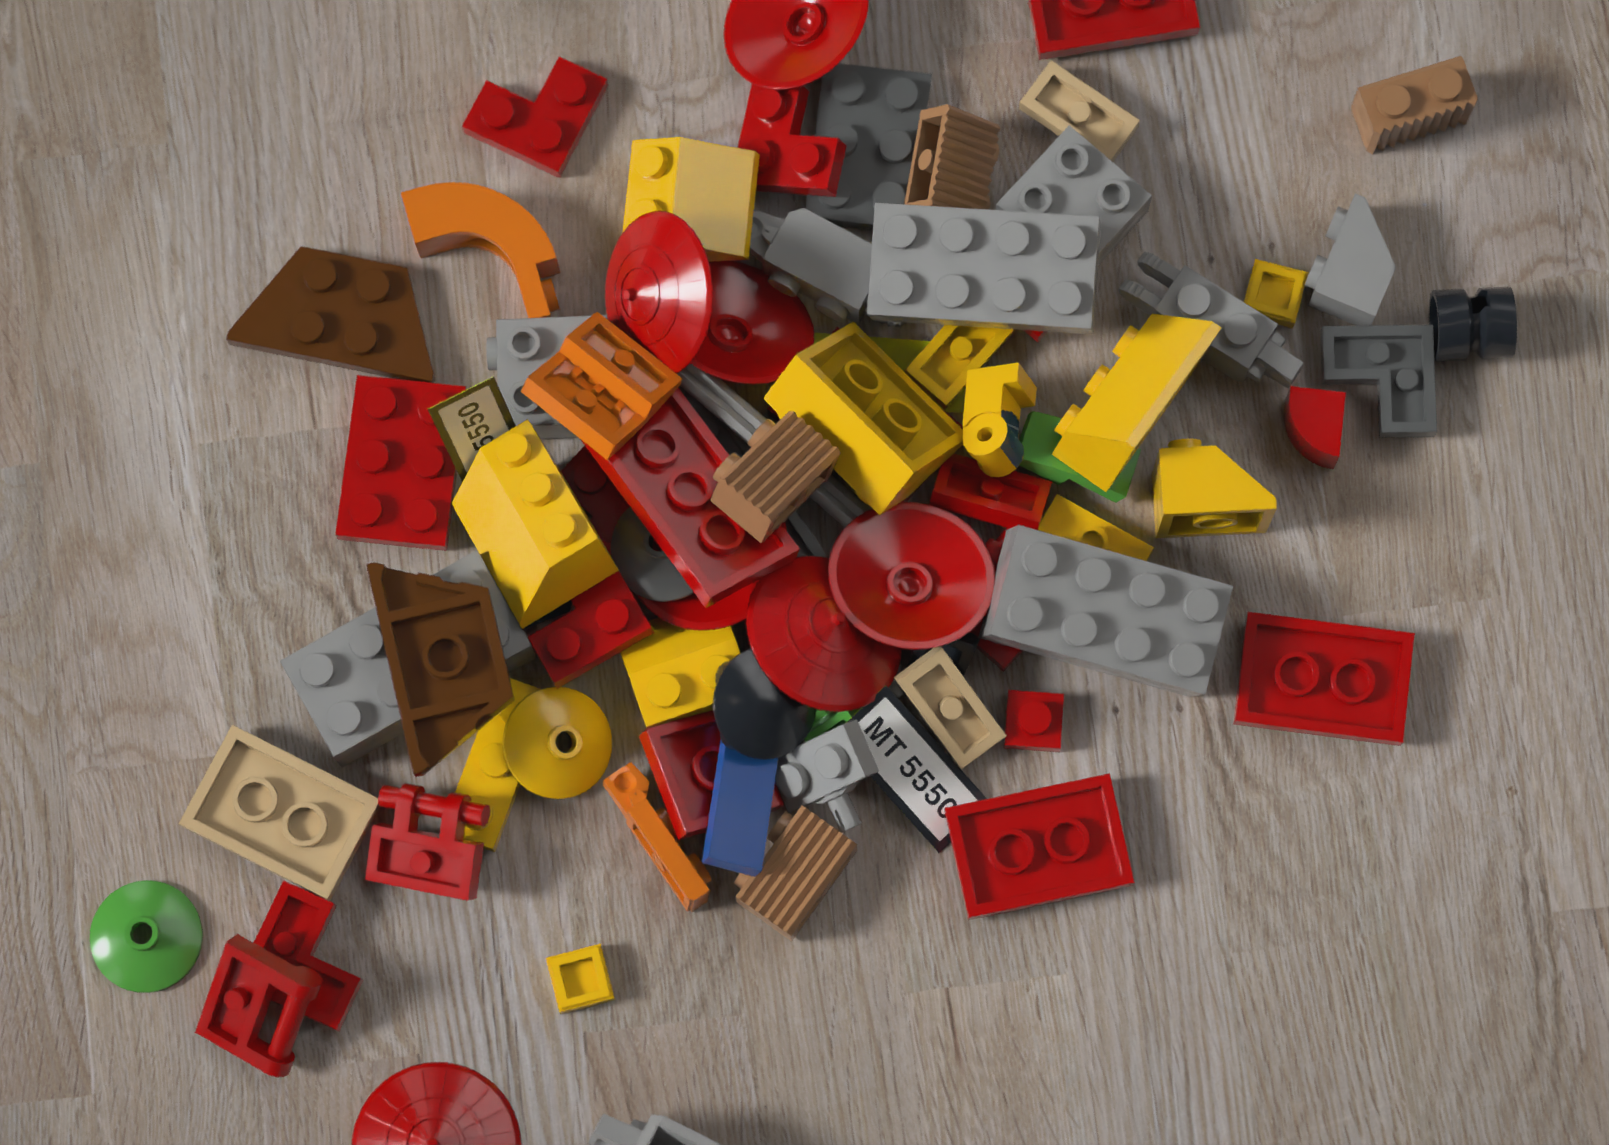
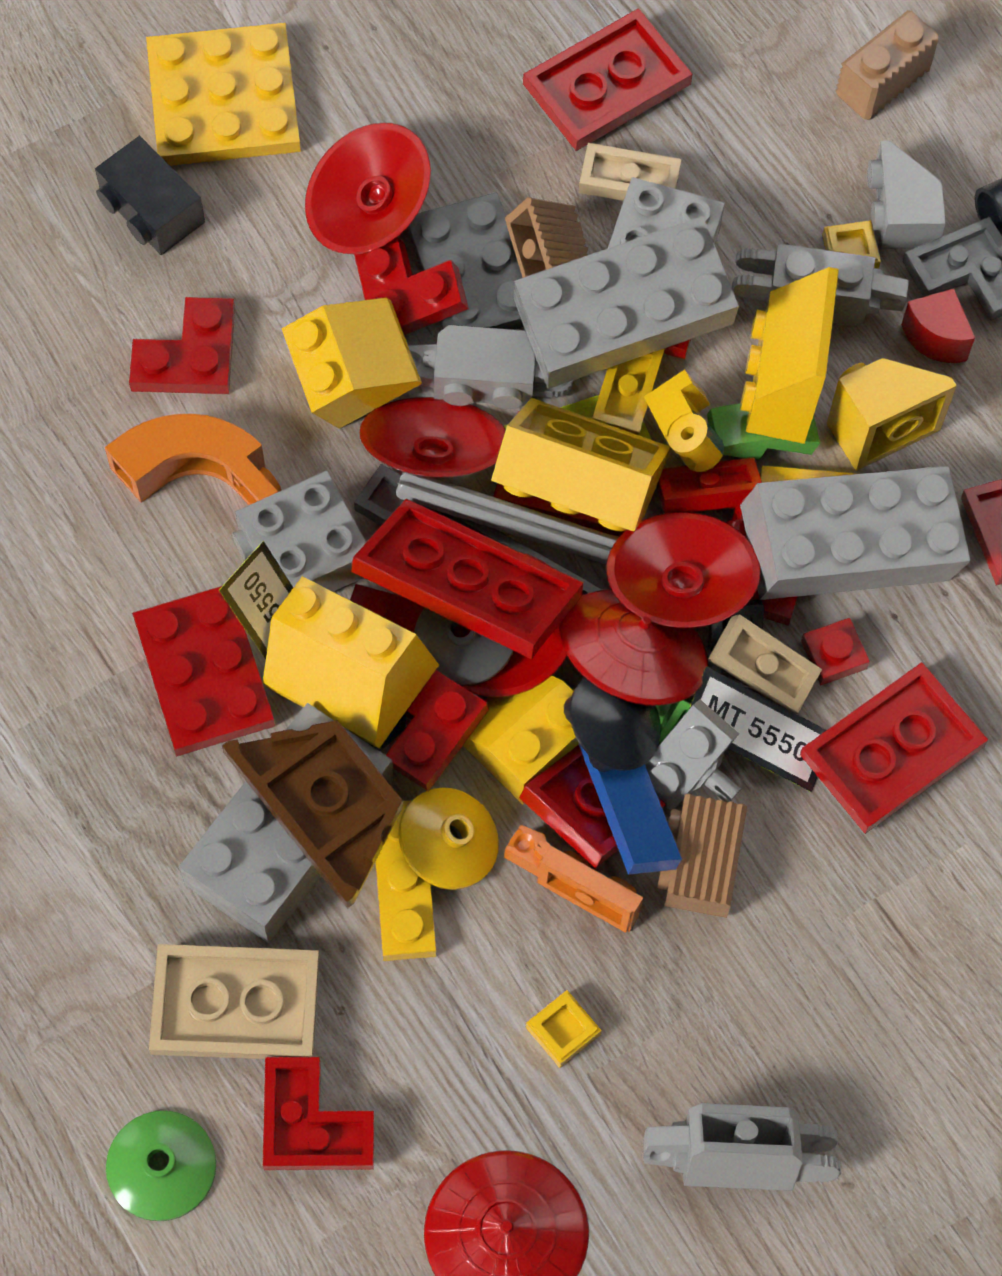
camera: 30 degrees left, 10 degrees down
(241, 1000) = (277, 1174): red plate -> none
(340, 316) = (93, 574): reddish brown wing -> none
(423, 859) = (382, 984): red plate -> none
(601, 385) = (353, 520): orange slope -> none
(661, 288) = (366, 431): red hat -> none
(773, 475) = (534, 530): medium nougat brick -> none

